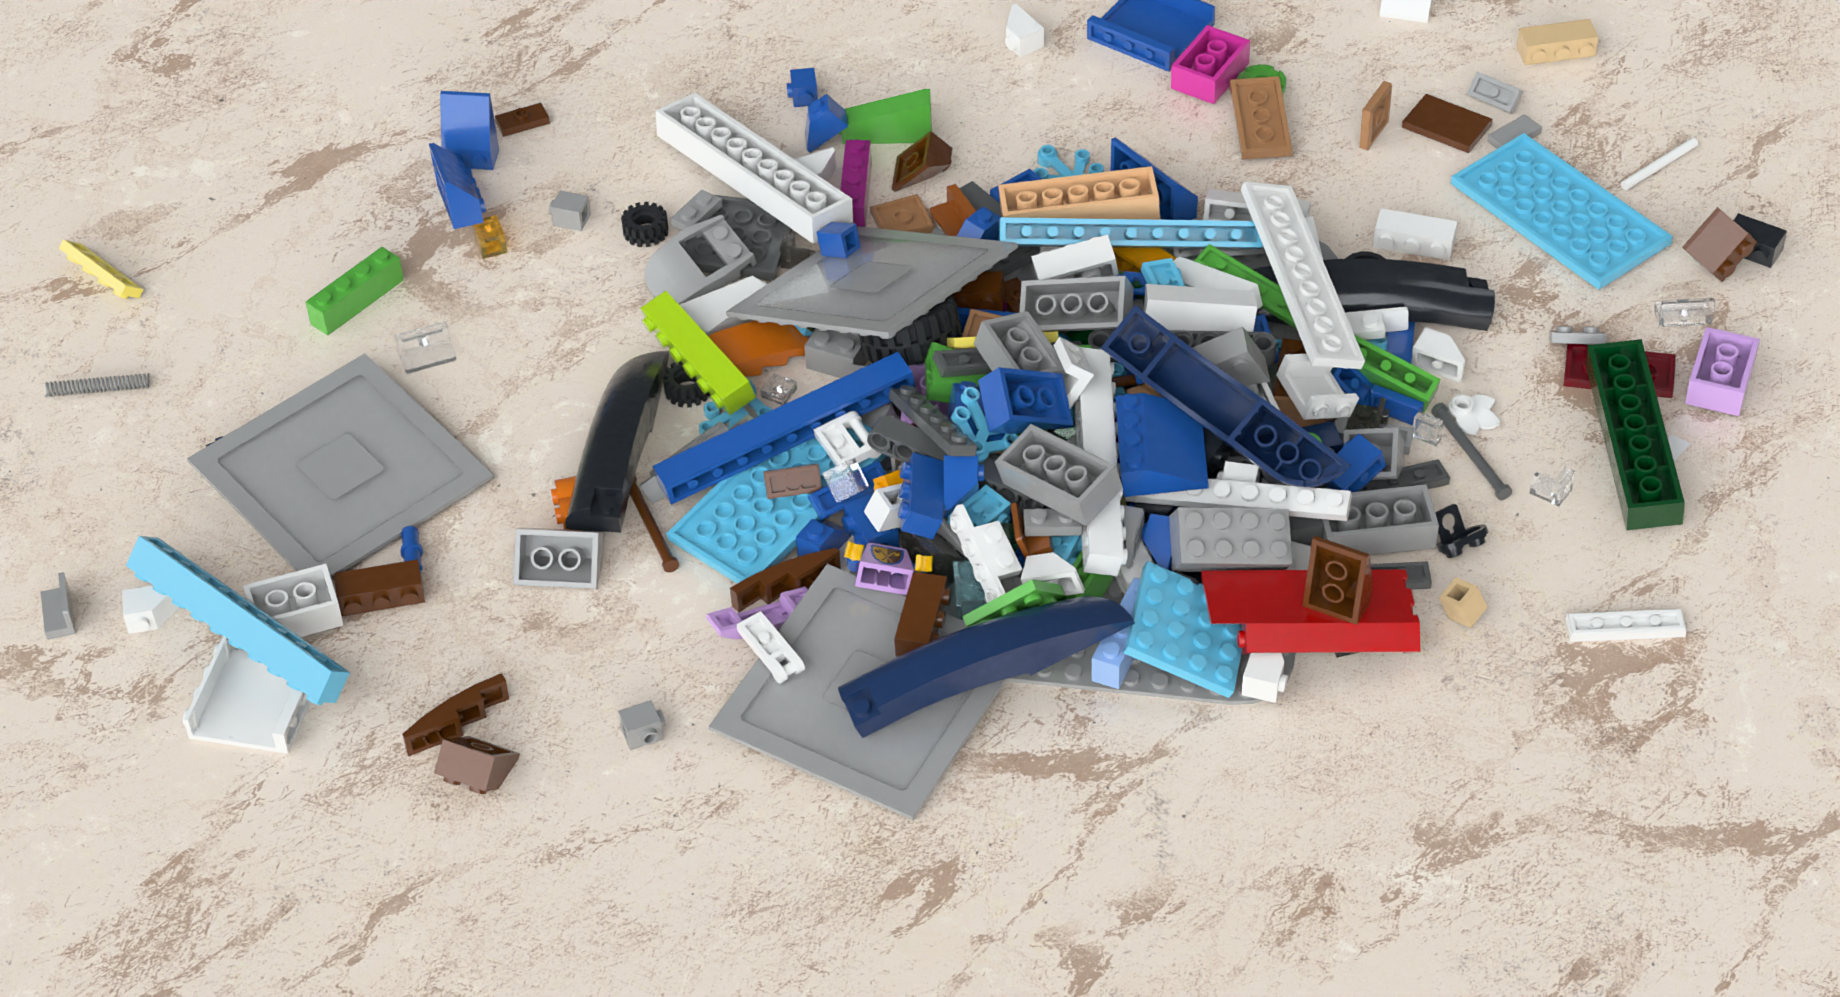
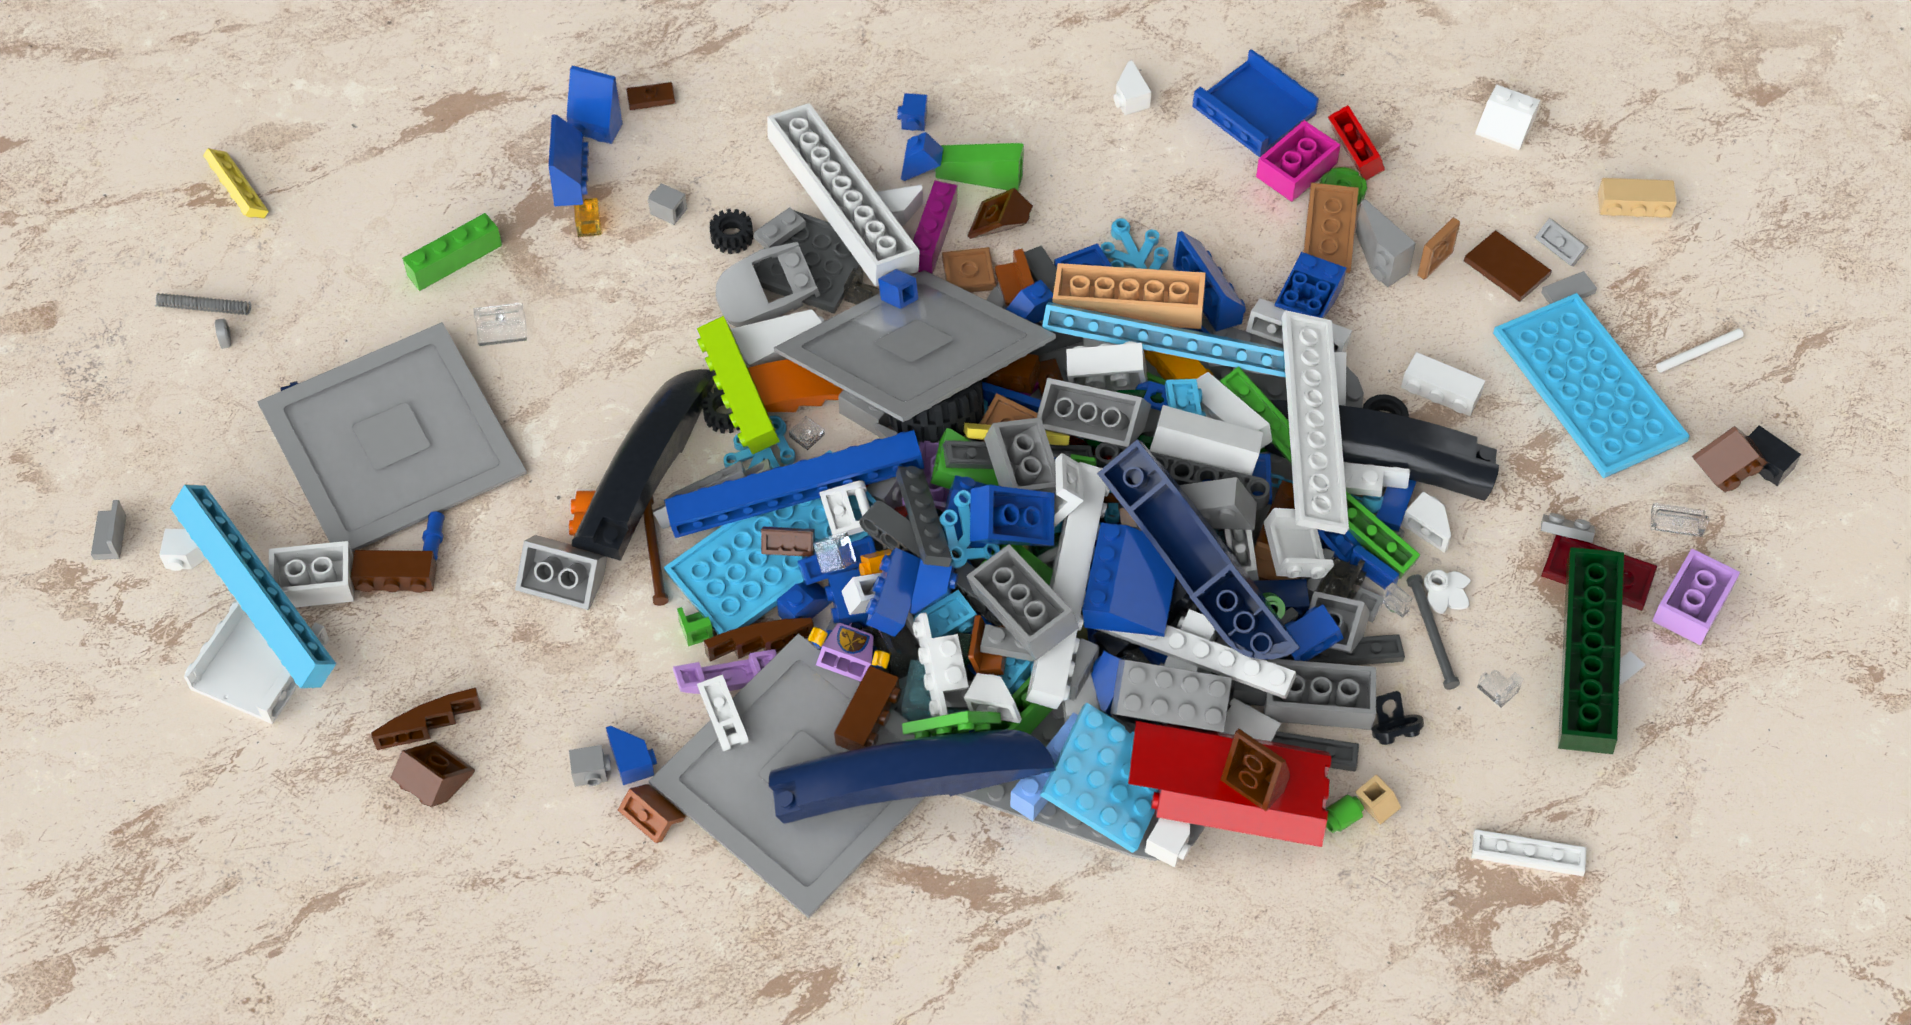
camera: 10 degrees right, 10 degrees up
(128, 406) = (223, 333): none -> light grey tile
(682, 707) = (631, 756): none -> blue slope
(714, 583) = (695, 627): none -> bright green panel
(717, 756) = (650, 811): none -> dark orange panel
(1258, 164) = (1311, 286): none -> blue slope
(1265, 39) = (1356, 143): none -> red brick
(1319, 121) = (1384, 245): none -> light grey slope
(1433, 623) = (1343, 813): none -> bright green brick

